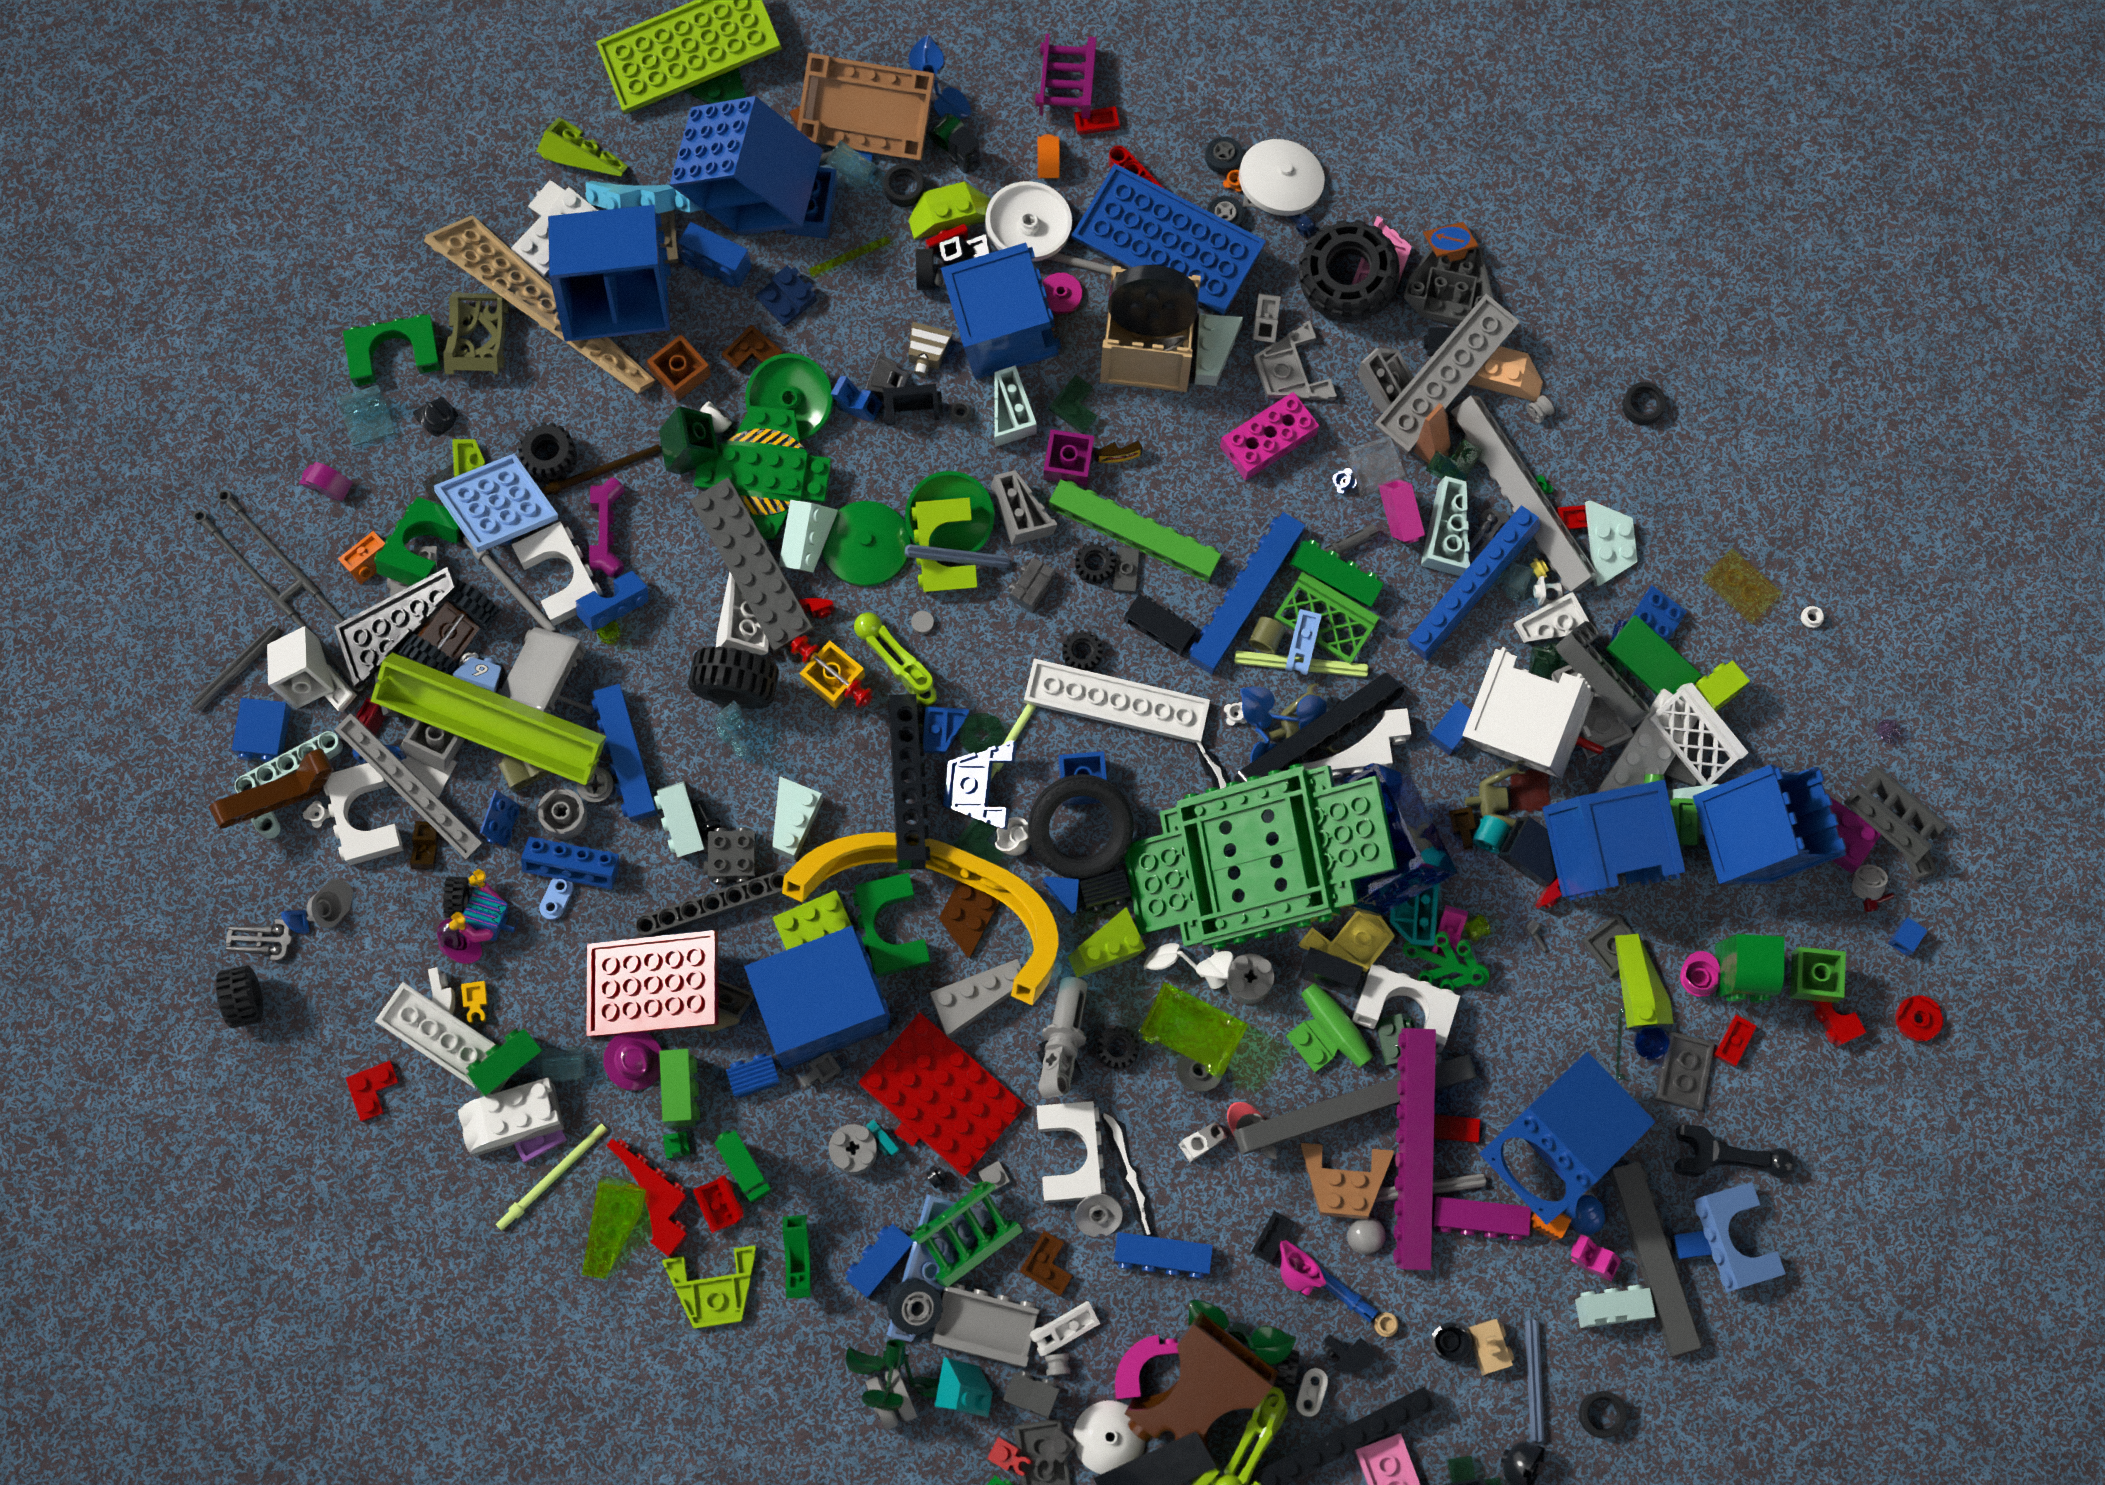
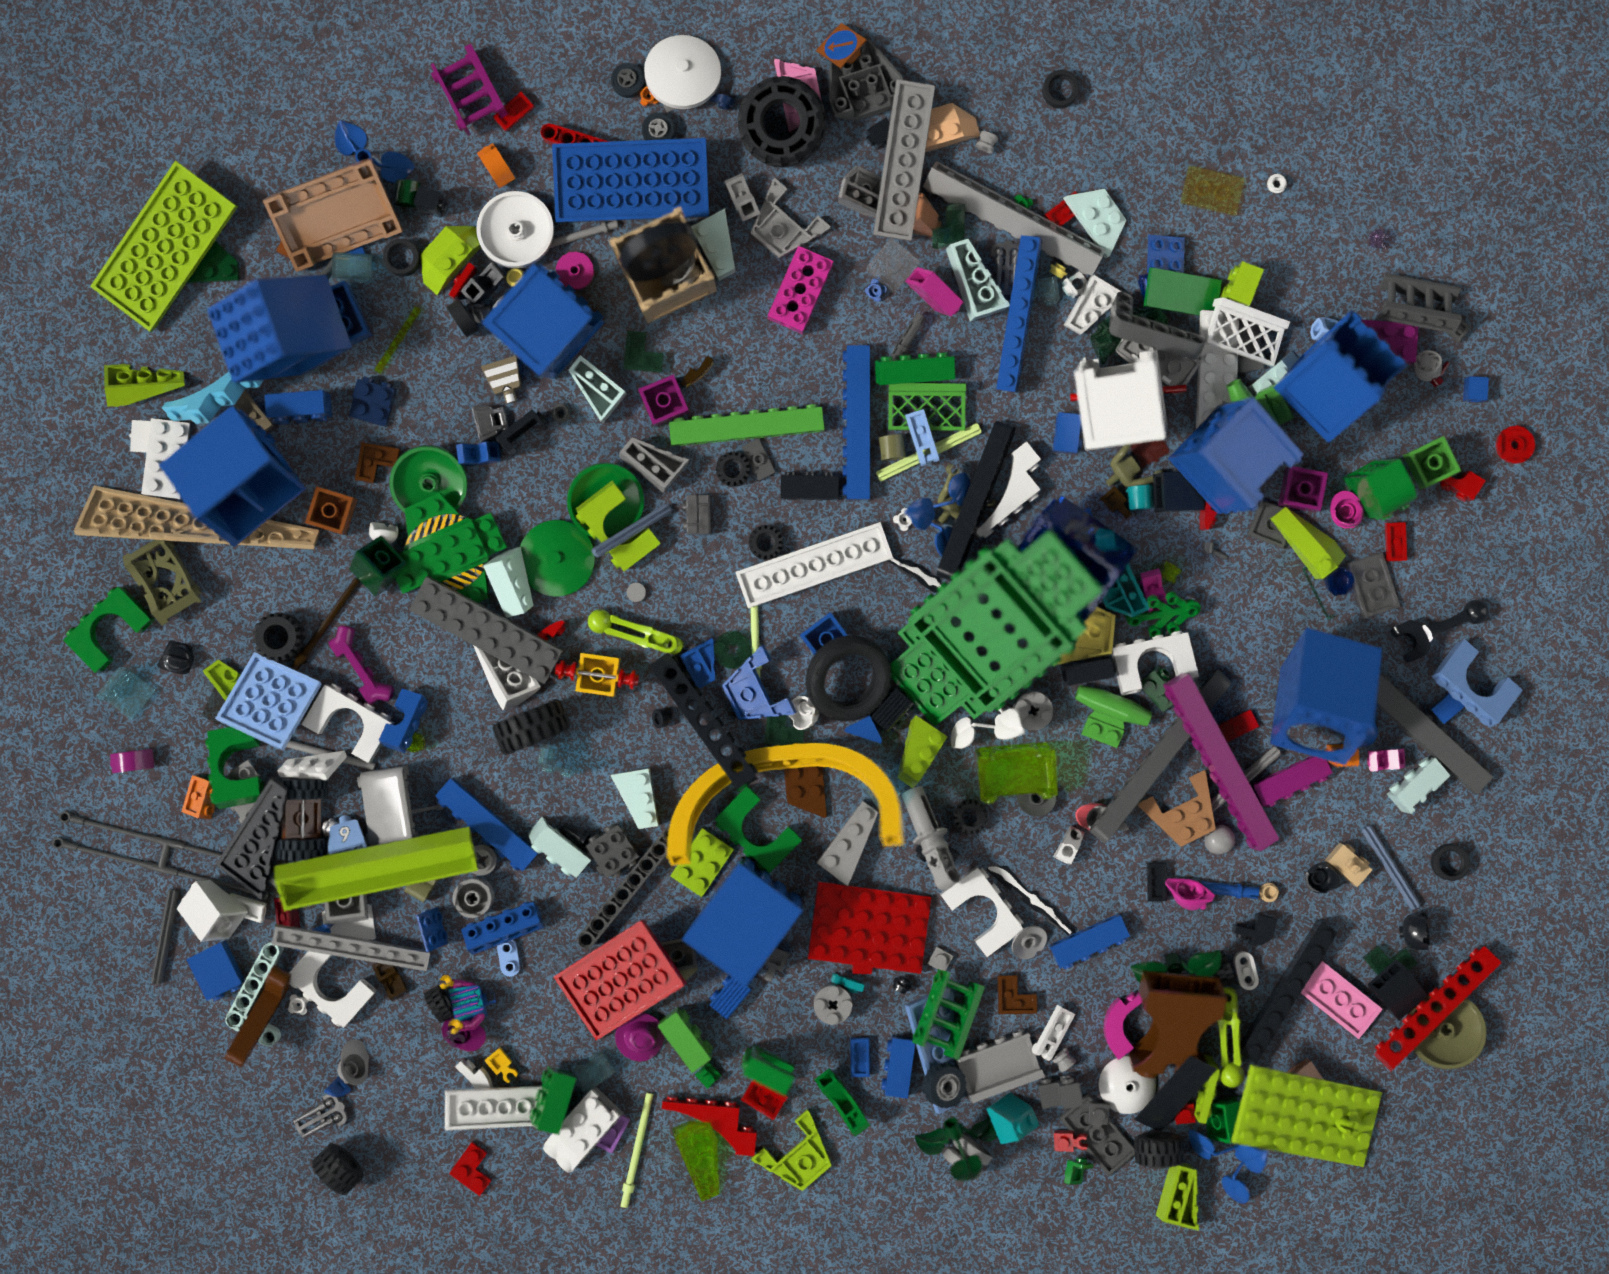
camera: 30 degrees left, 15 degrees up
(497, 592) = (313, 766): none -> white wing
(845, 1225) = (860, 1056): none -> blue plate
(867, 756) = (661, 718): none -> black tile
(1666, 926) = (1303, 489): none -> magenta brick

